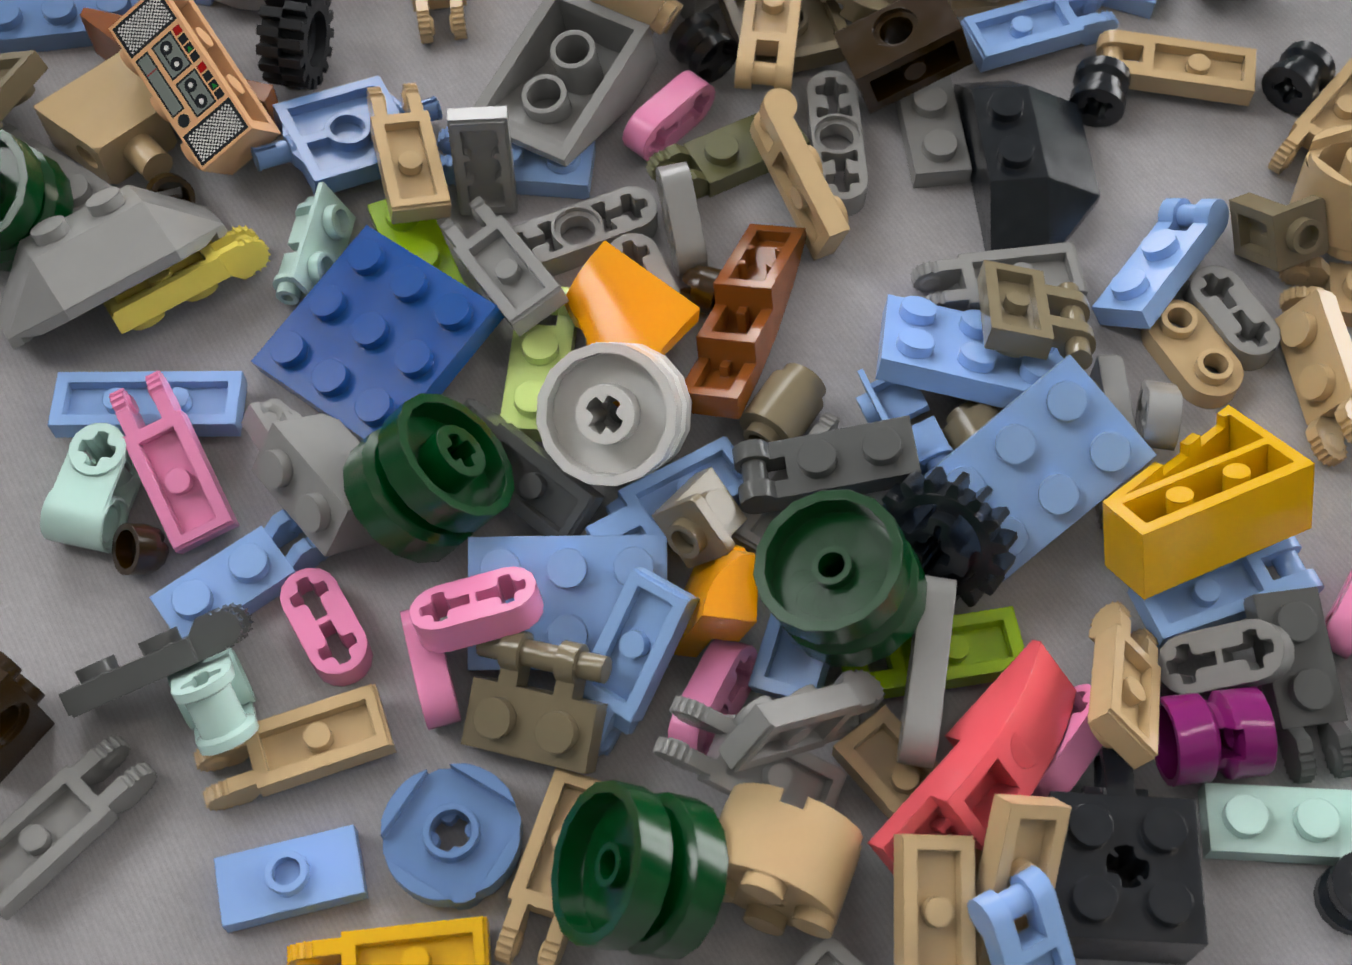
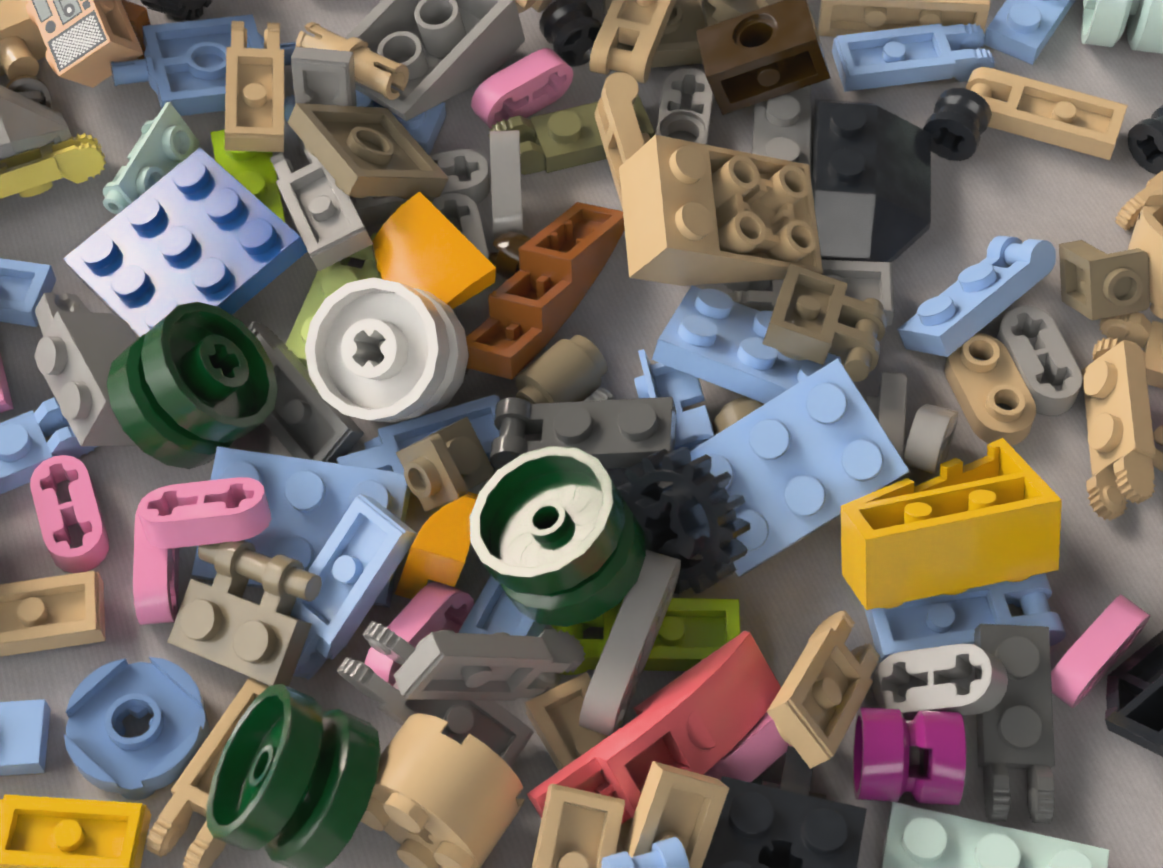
camera: 10 degrees right, 5 degrees down
(525, 119) = (369, 67): none -> tan pin
(540, 205) = (367, 151): none -> dark tan plate
(900, 221) = (715, 214): none -> tan slope

